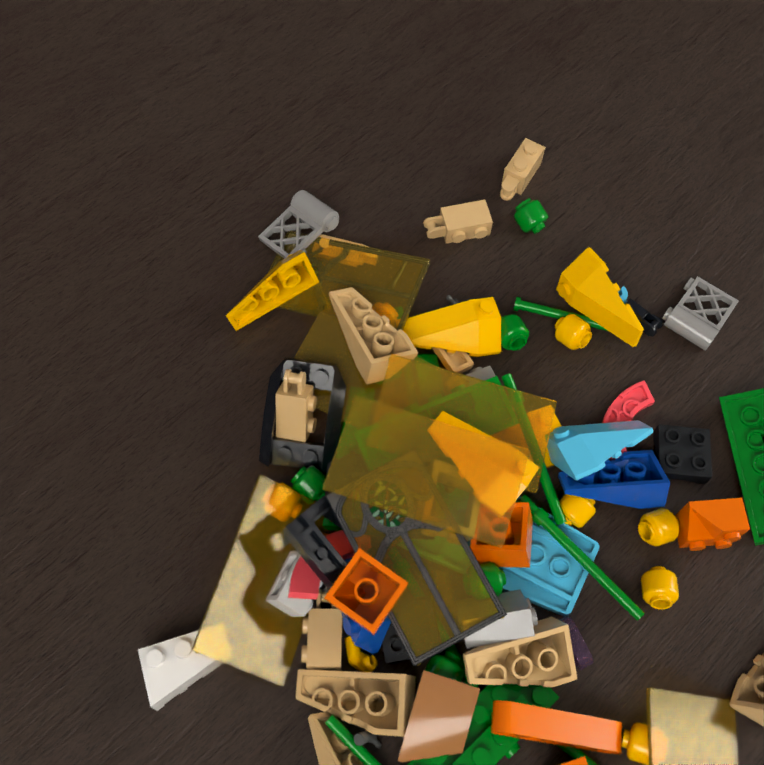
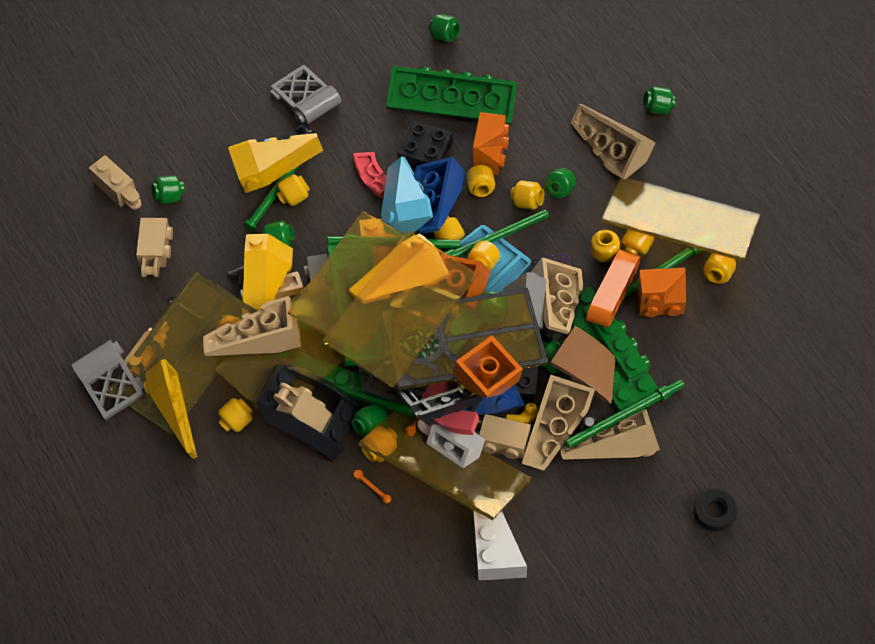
camera: 70 degrees left, 5 degrees down
(224, 527) = (358, 475): none -> orange hinge
(283, 346) = (235, 415): none -> yellow head
(550, 554) = (486, 253): none -> yellow head
(628, 701) = (605, 245): none -> yellow head
(690, 623) = (560, 183): none -> green head

